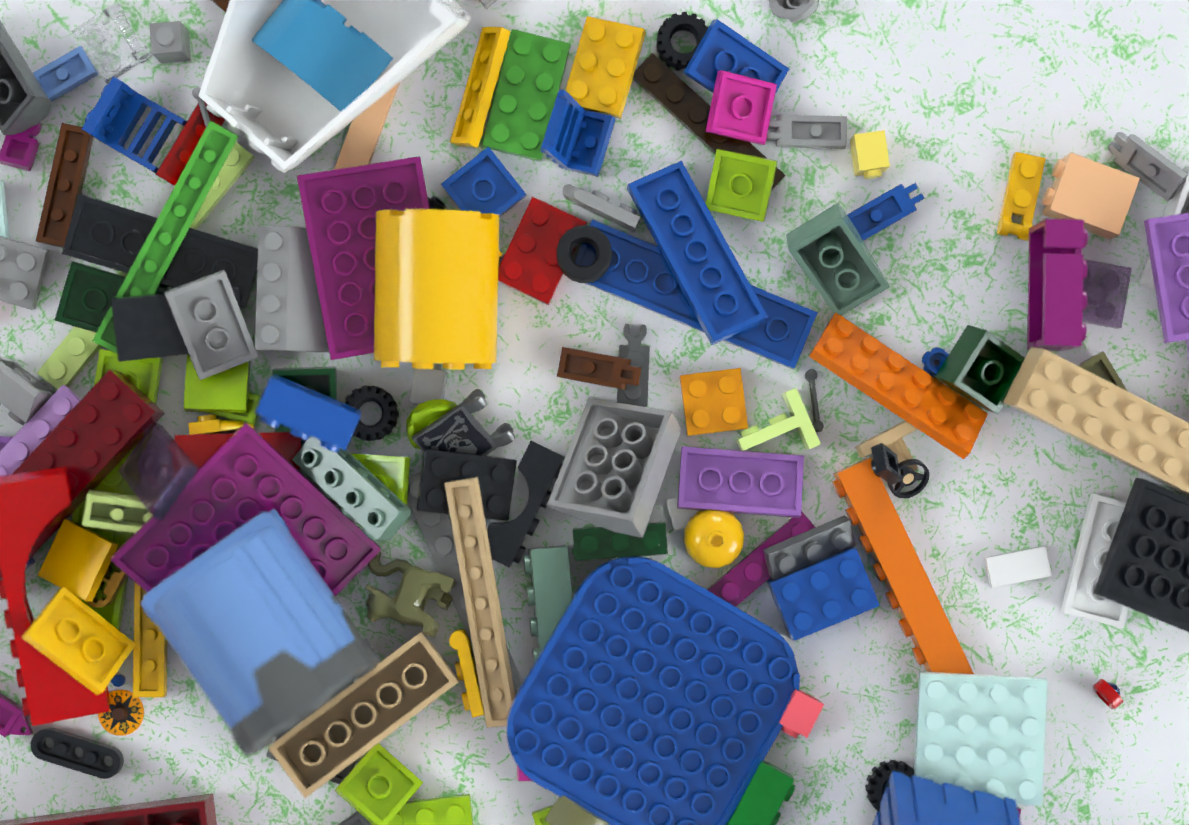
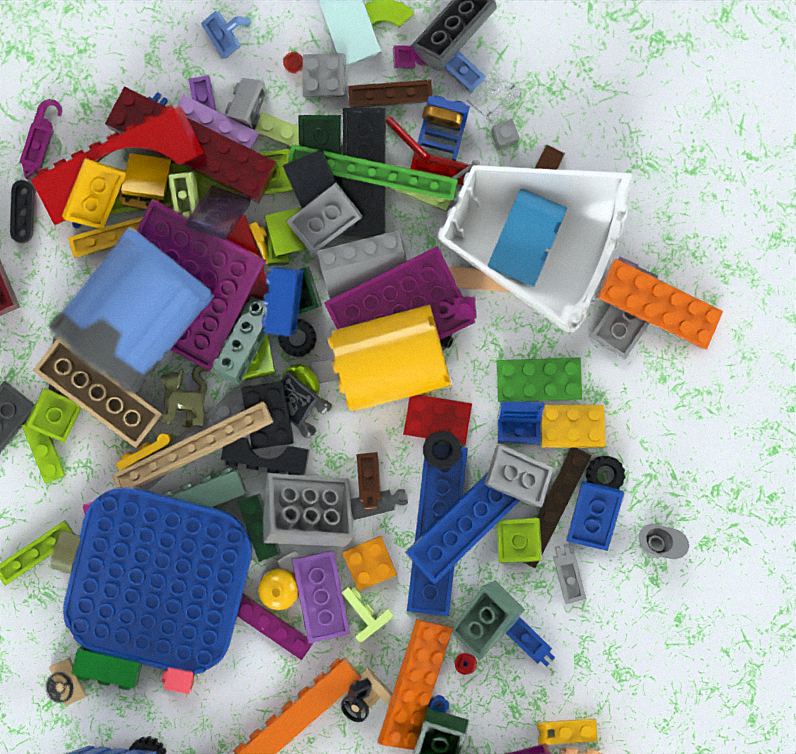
camera: 75 degrees right, 0 degrees up
(118, 120) = (442, 116): none -> pearl gold beam
(124, 715) = (56, 235): piece -> none
(136, 178) = (407, 139): none -> red bar
(395, 167) = (462, 308): none -> magenta plate
(480, 87) = (535, 347): yellow plate -> none
(484, 186) = (468, 369): blue plate -> none
(598, 204) = (479, 449): light grey hinge -> none
(651, 159) = (518, 476): none -> light grey plate
(741, 107) = (570, 526): dark pink tile -> none
(809, 547) = (290, 655): dark grey plate -> none
(811, 376) = (405, 623): dark grey hinge -> none
(823, 594) = (262, 672): blue brick -> none
(869, 154) = (565, 621): light yellow brick -> none
(889, 308) = (465, 663): none -> red tile

